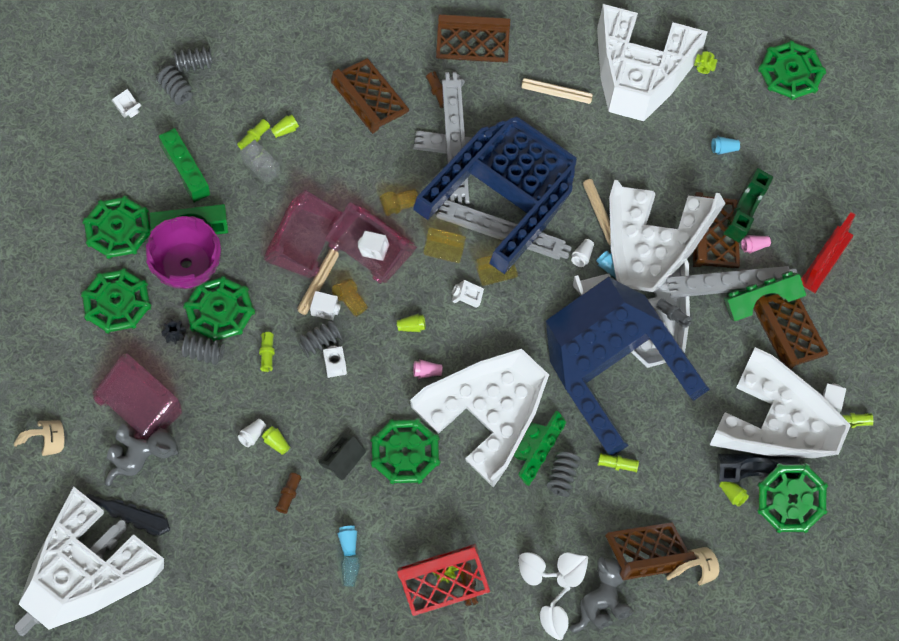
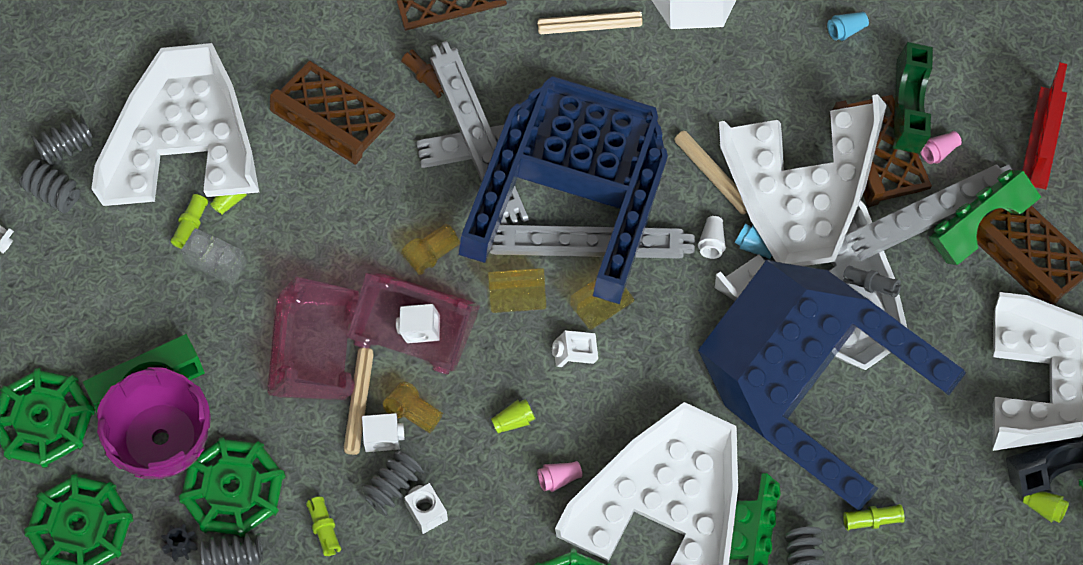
camera: 15 degrees left, 0 degrees up
(188, 170) = (113, 300): green arch -> none
(270, 62) = (176, 109): none -> white piece

